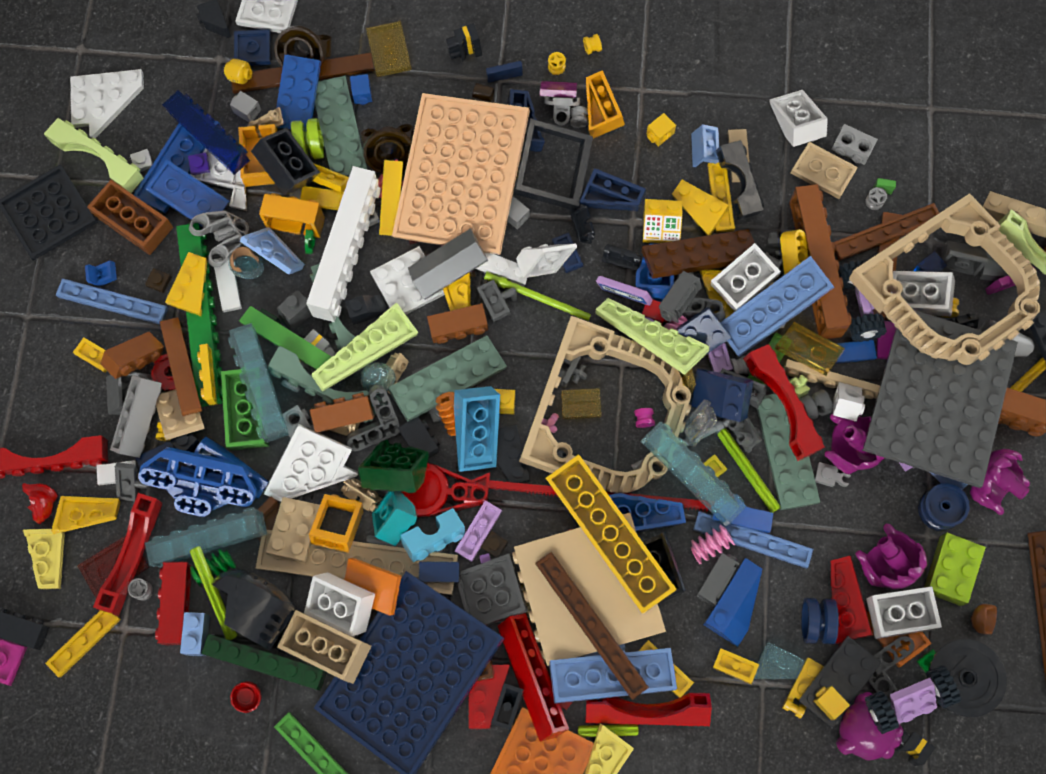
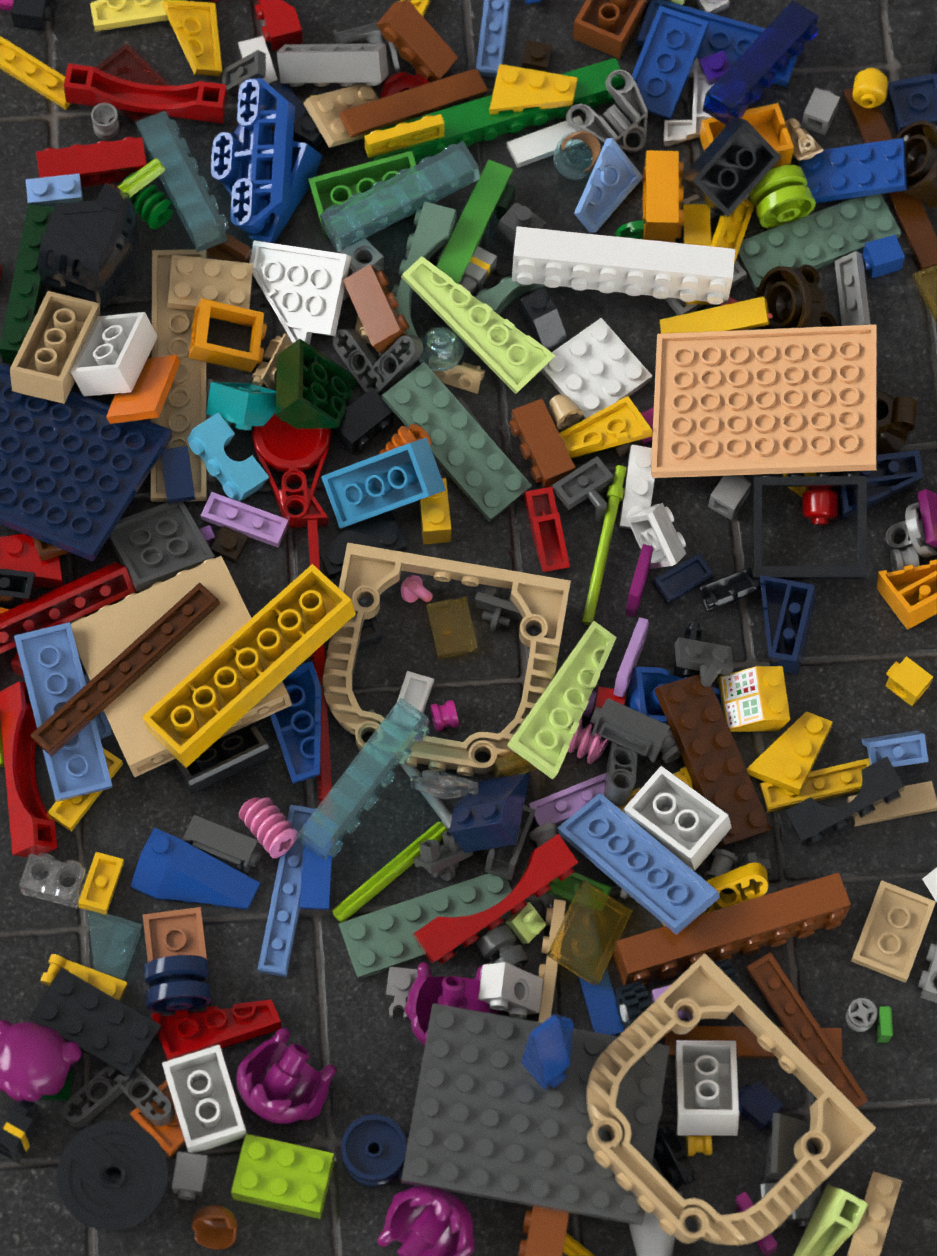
camera: 75 degrees right, 5 degrees down
(384, 112) = (852, 290): none -> light grey plate
(435, 305) = (564, 412): none -> tan hat
(447, 264) = (623, 409): slope -> none
(519, 331) = (546, 529): none -> red slope
(535, 159) = (820, 504): none -> red head
(570, 276) = (639, 580): none -> magenta tile
(627, 438) = (416, 690): none -> white tile
(633, 243) = (704, 656): none -> dark grey plate
(706, 329) = (583, 772): plate -> none
(716, 465) = (384, 820): yellow plate -> none
(734, 701) = (50, 887): none -> clear brick
(781, 620) = (174, 933): none -> nougat plate
(831, 702) = (60, 1002): yellow brick -> none
(913, 372) = (549, 1051): none -> blue wedge
(913, 700) = (66, 1088): plate -> none
(949, 631) = (190, 1175): none -> light grey brick

